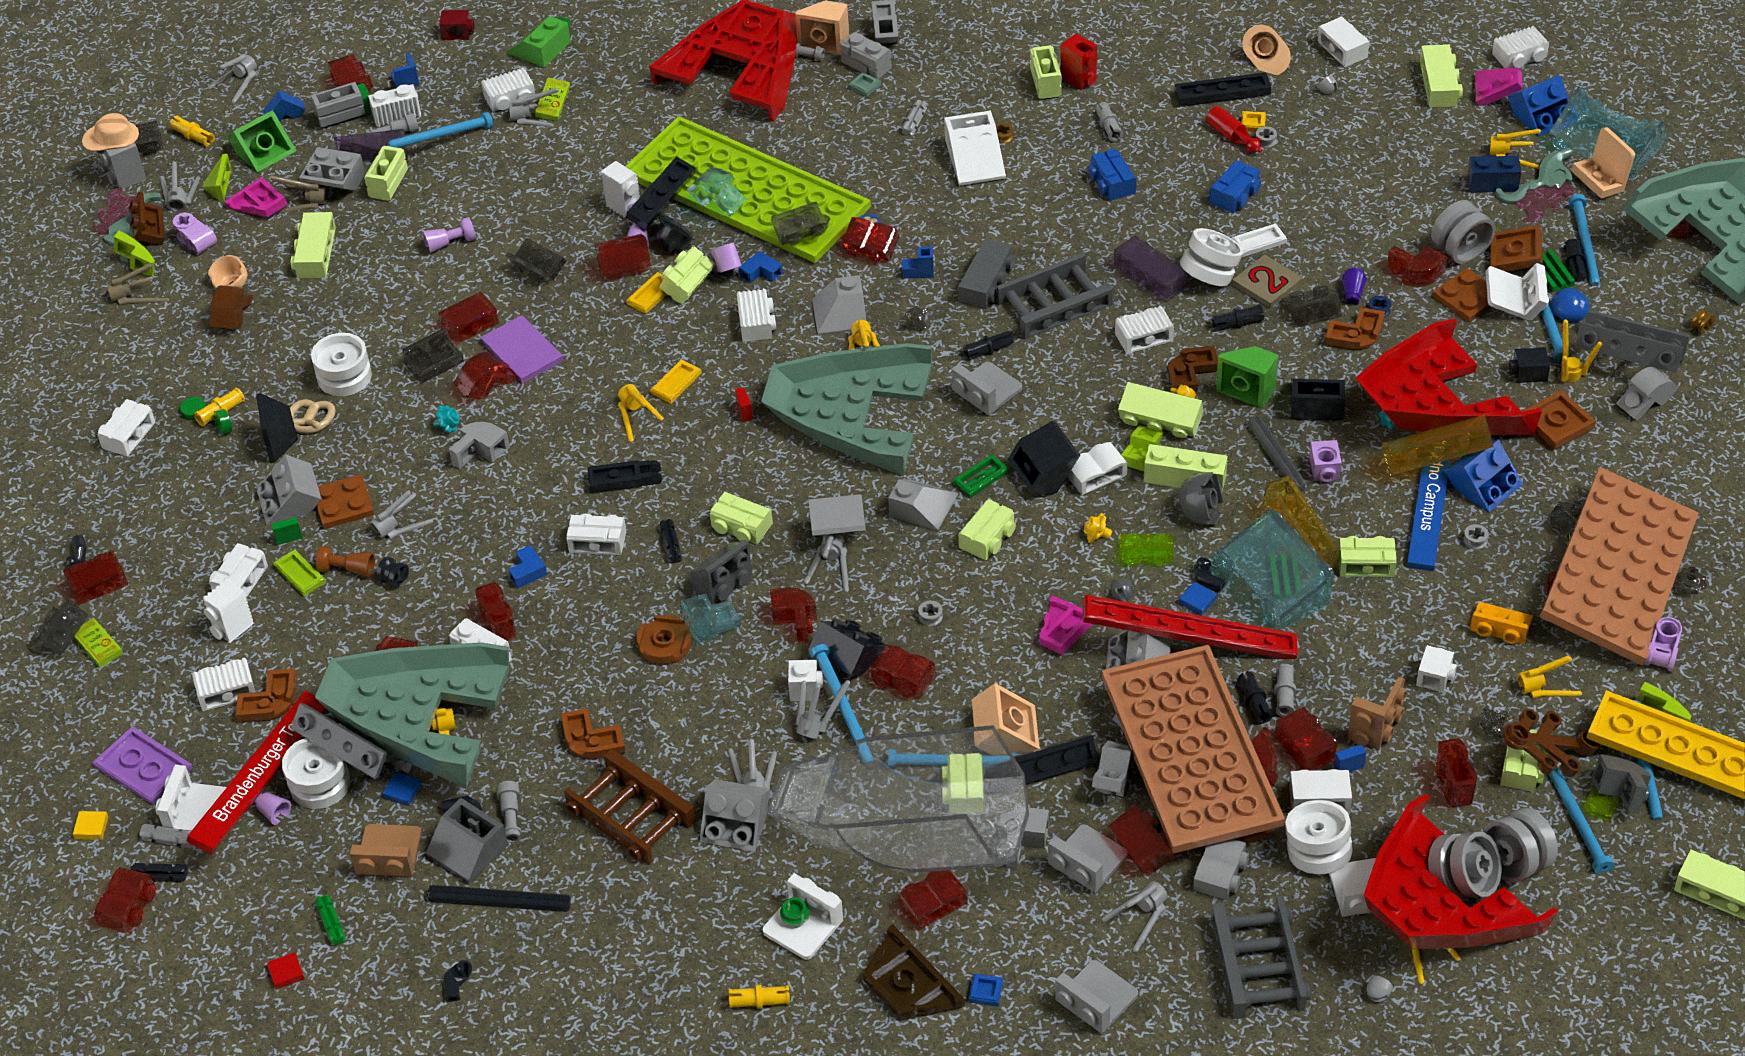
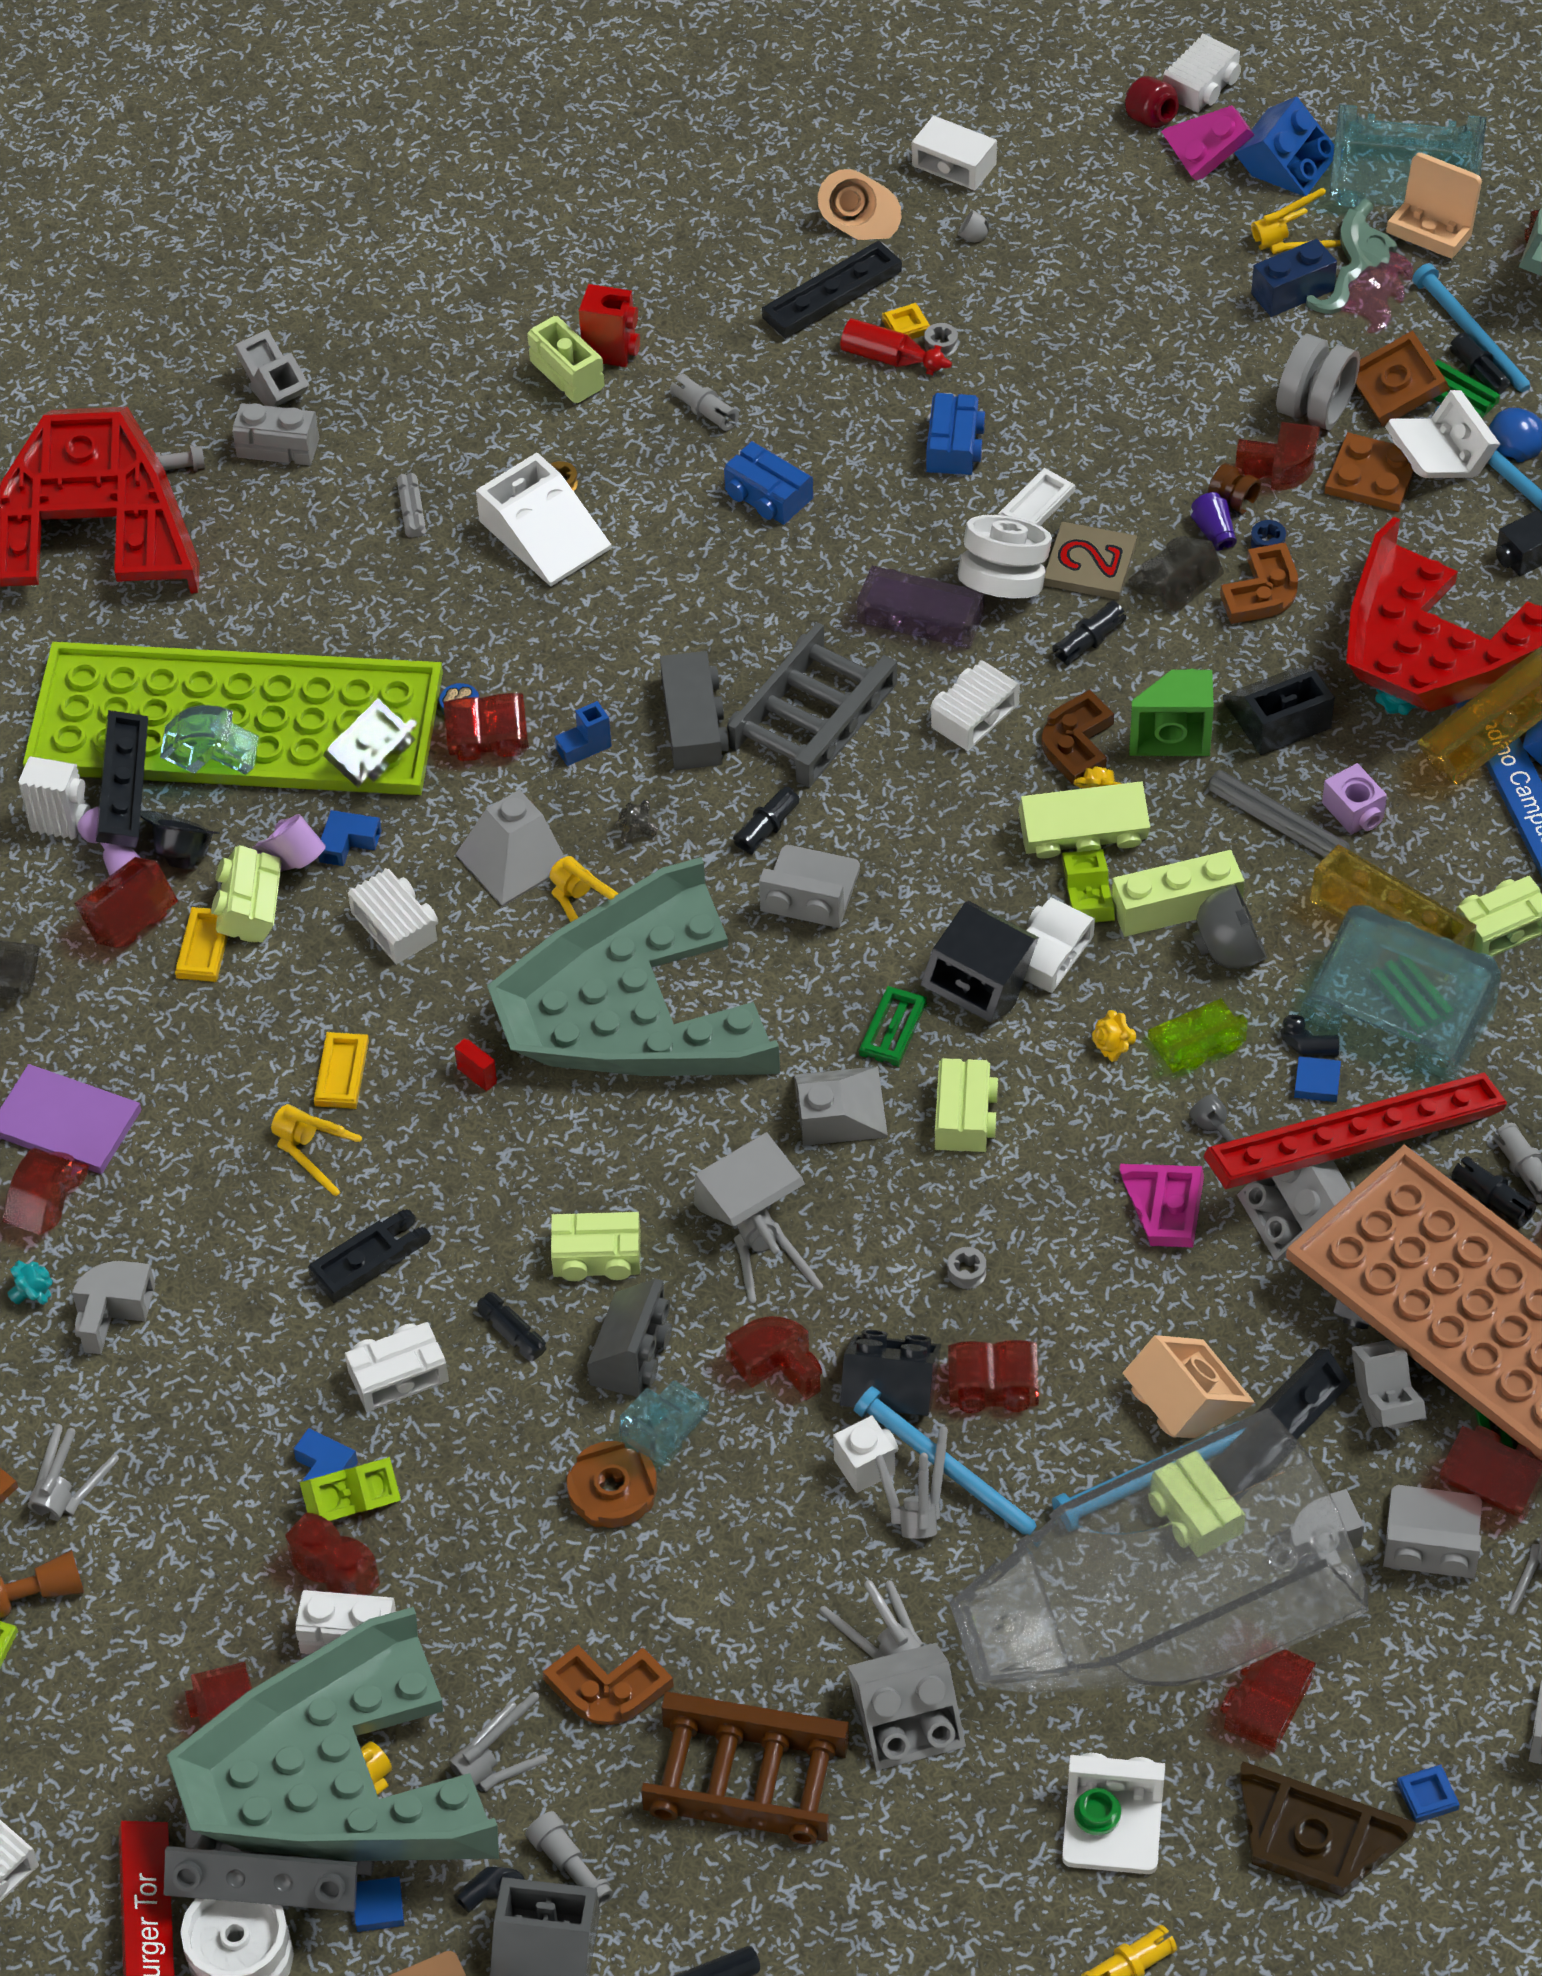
camera: 30 degrees left, 5 degrees up
(271, 703) = (78, 1860): dark orange plate -> none
(392, 572) = (120, 1568): black wheel -> none
(497, 741) = (479, 1760): none -> light grey plant
(529, 584) = (351, 1490): none -> lime slope
(823, 26) = (185, 412): light nougat slope -> none
(864, 84) = (298, 480): sand green tile -> none
(1376, 271) = (1234, 486): none -> reddish brown wheel
(1440, 75) = (1121, 156): yellowish green brick -> none
(1479, 53) = (1151, 102): none -> dark red head

